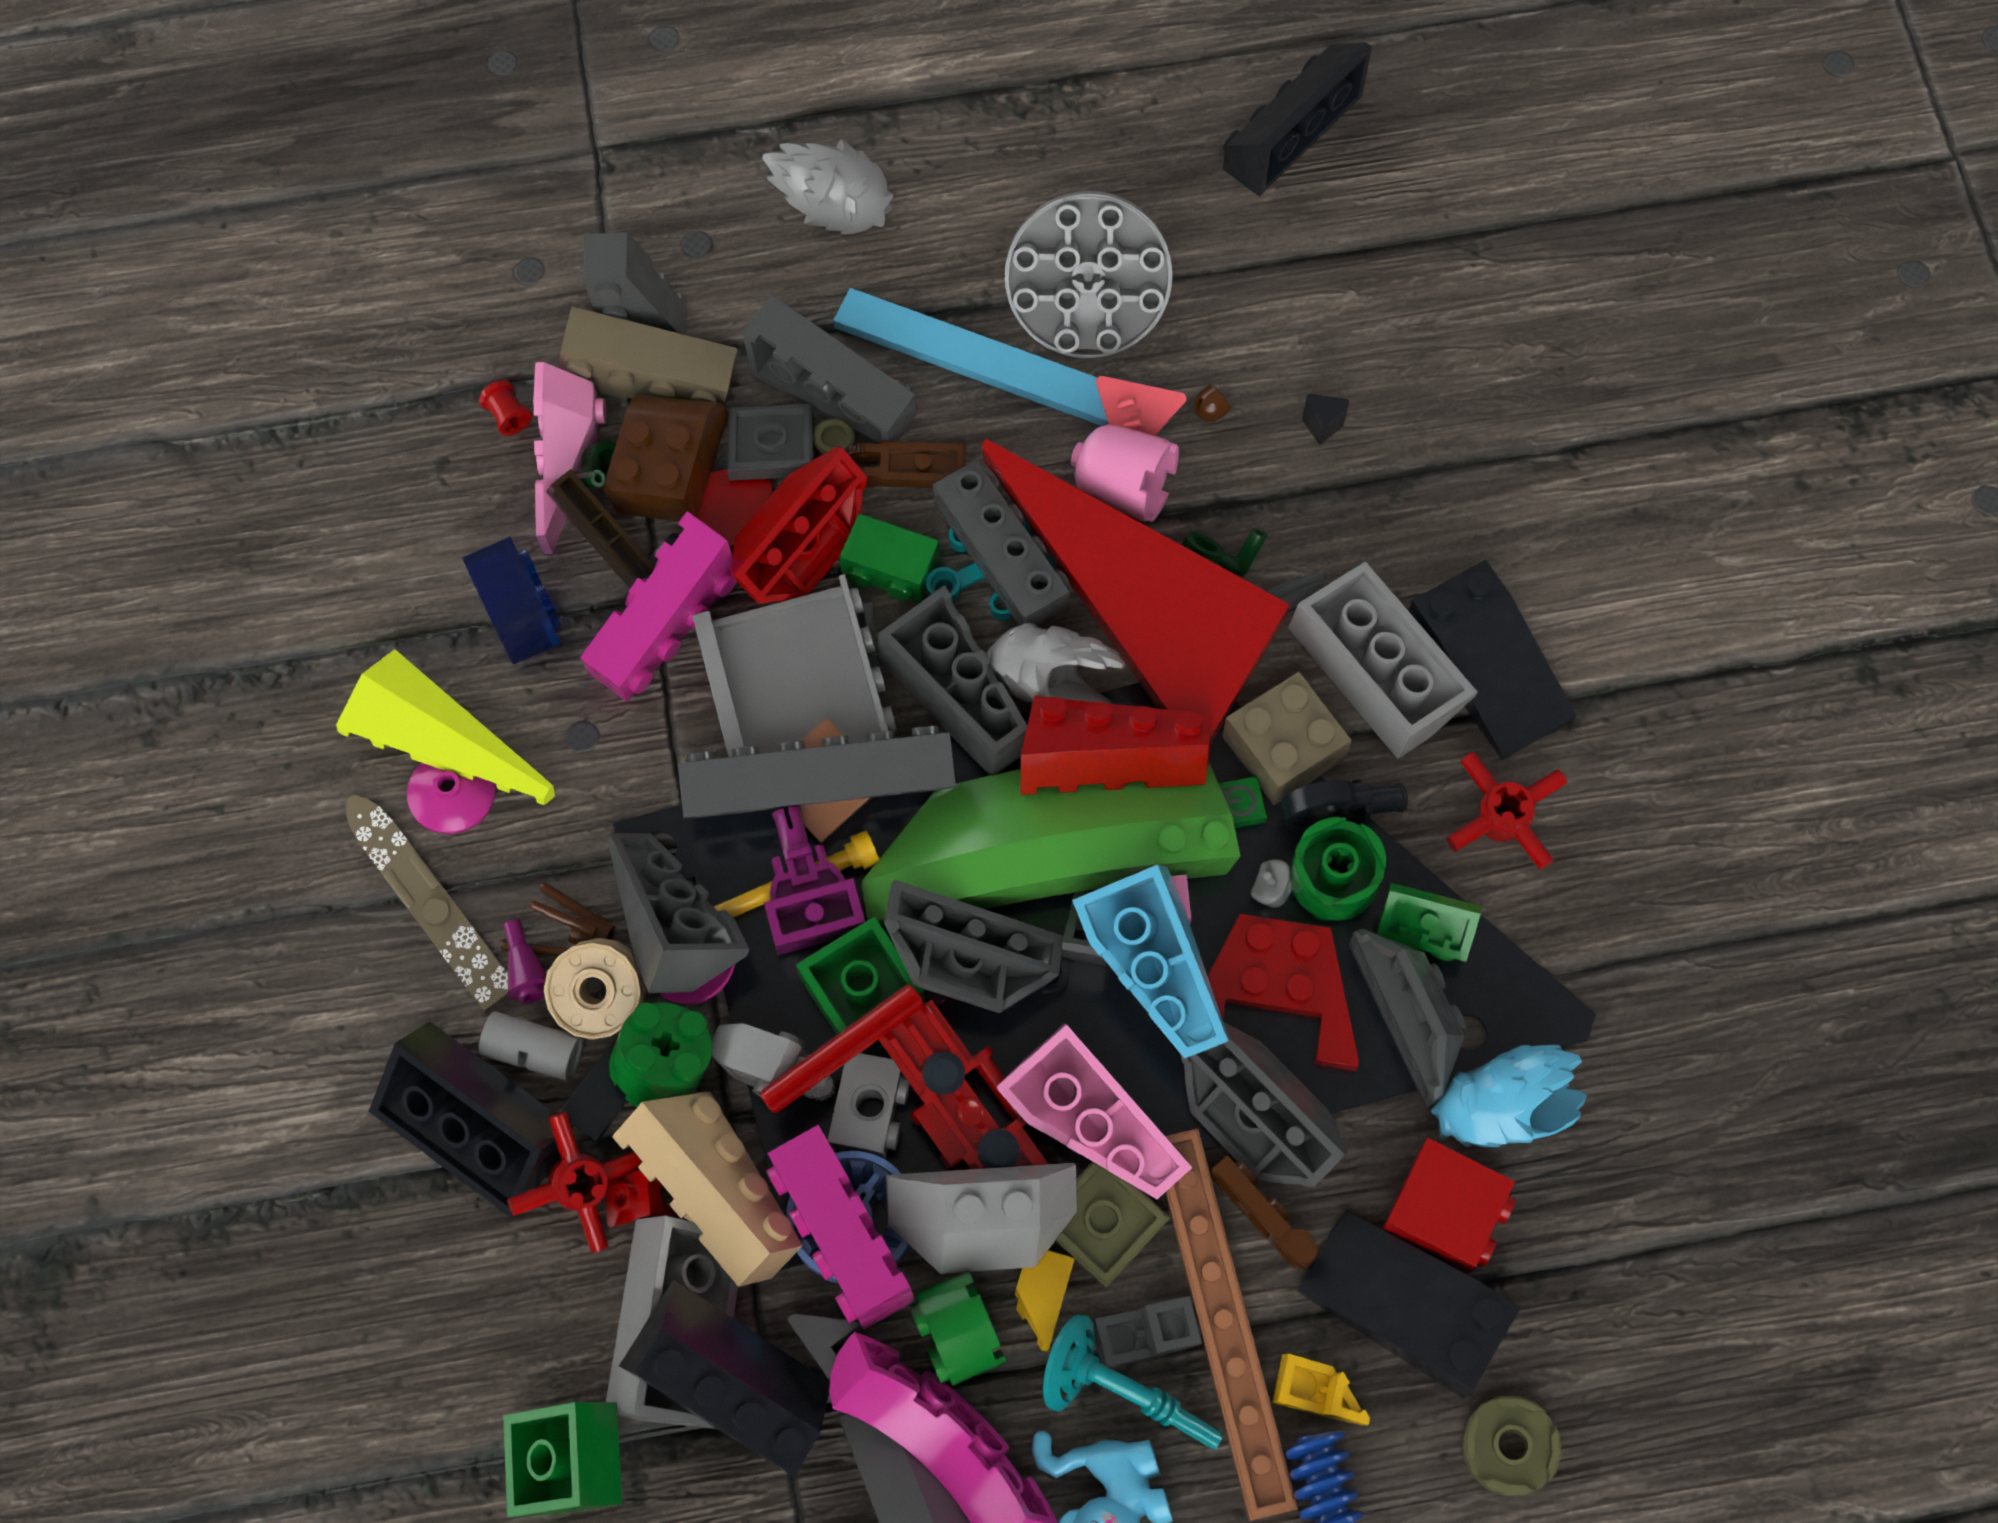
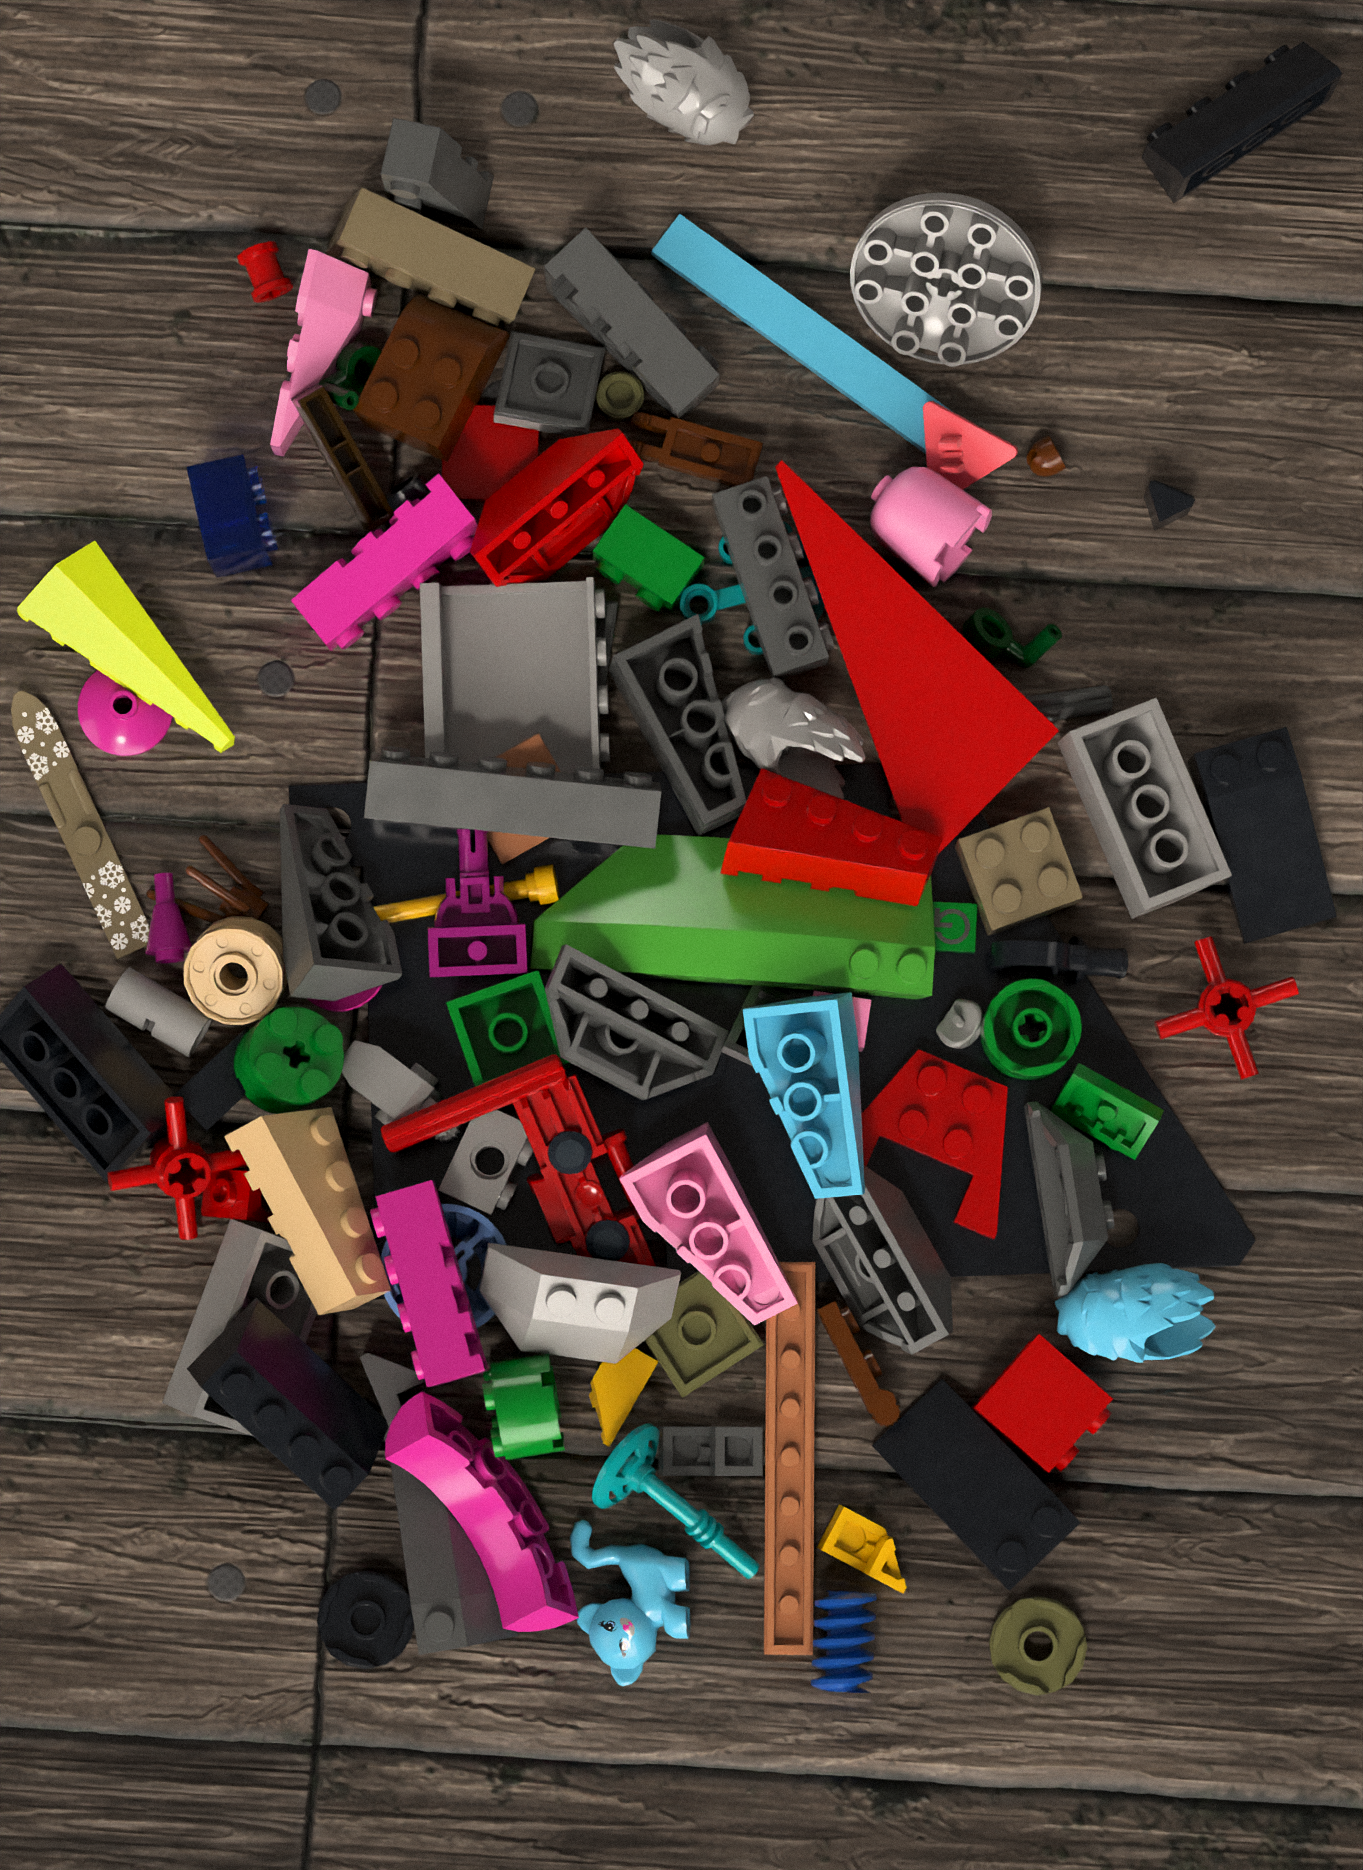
camera: 10 degrees right, 15 degrees up
(562, 1459) = (114, 1440): green brick -> none

